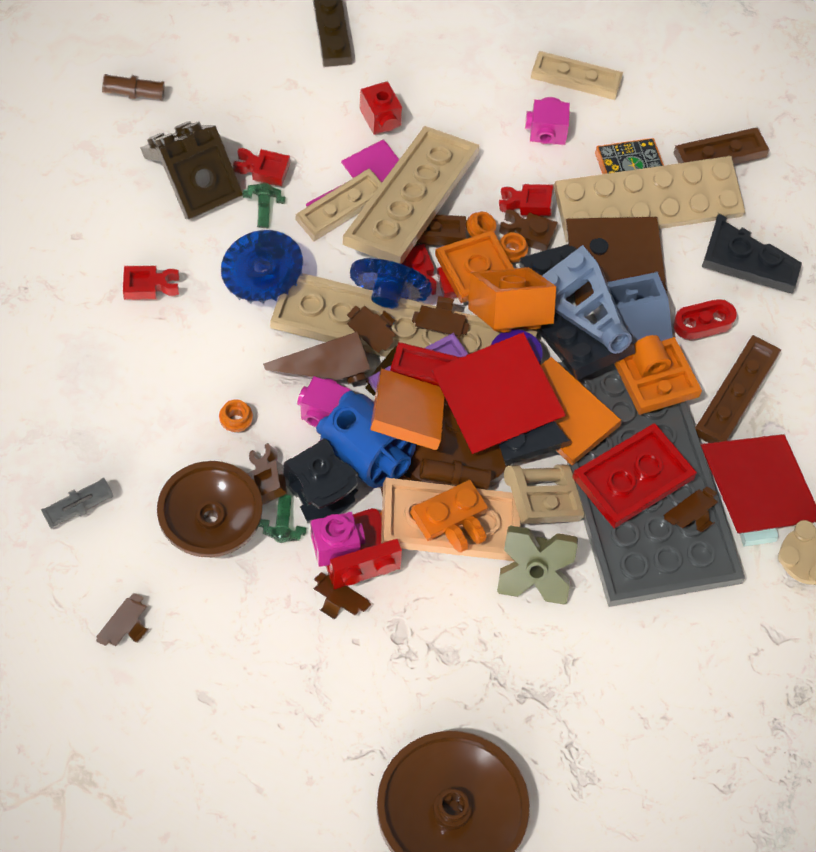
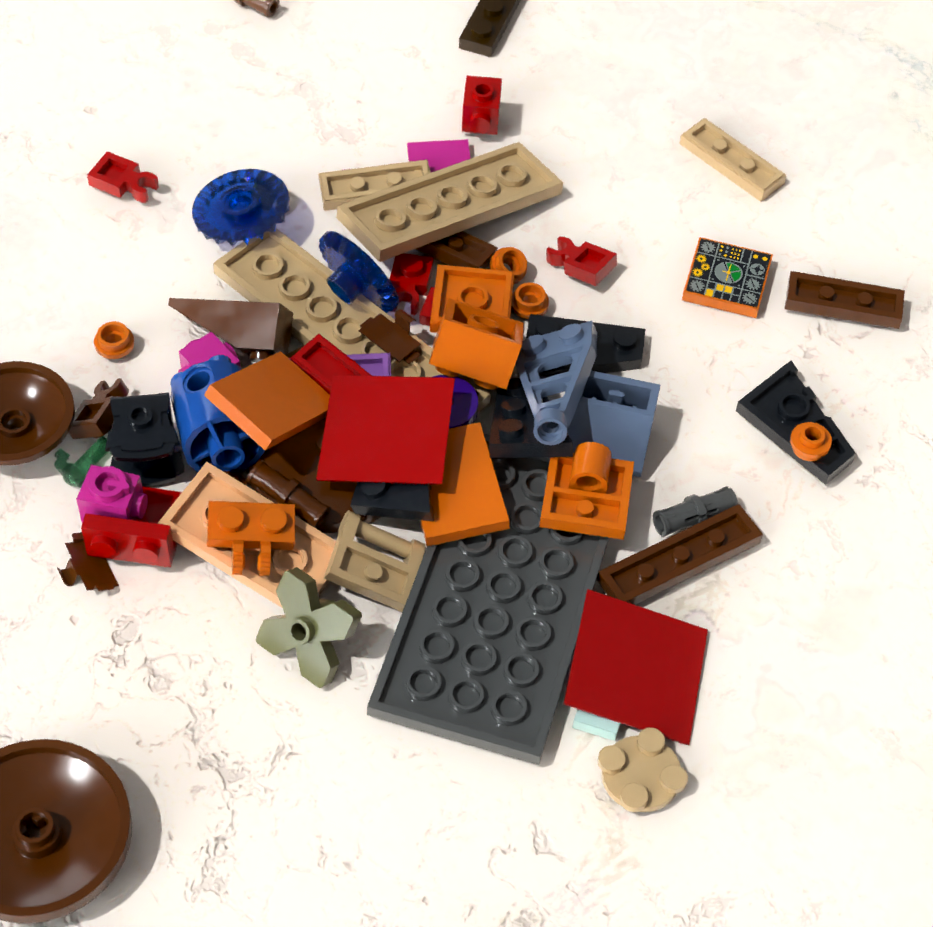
camera: 30 degrees right, 5 degrees down
(186, 153) = (237, 68): dark brown bracket -> none
(264, 192) = (303, 141): clear green piece -> none
(265, 167) = (321, 118): red plate -> none
(372, 327) = (310, 312): reddish brown piece -> none
(535, 229) = (567, 295): reddish brown plate -> none
(548, 121) = (661, 190): dark pink brick -> none
(631, 251) = (664, 353): reddish brown piece -> none
(634, 475) = (484, 585): red plate -> none
(673, 193) = (722, 313): tan plate -> none
(692, 509) = (529, 655): reddish brown piece -> none
(702, 319) = (696, 464): red plate -> none
(725, 353) = (693, 510): none -> dark grey pin
(769, 273) = (810, 449): none -> orange plate

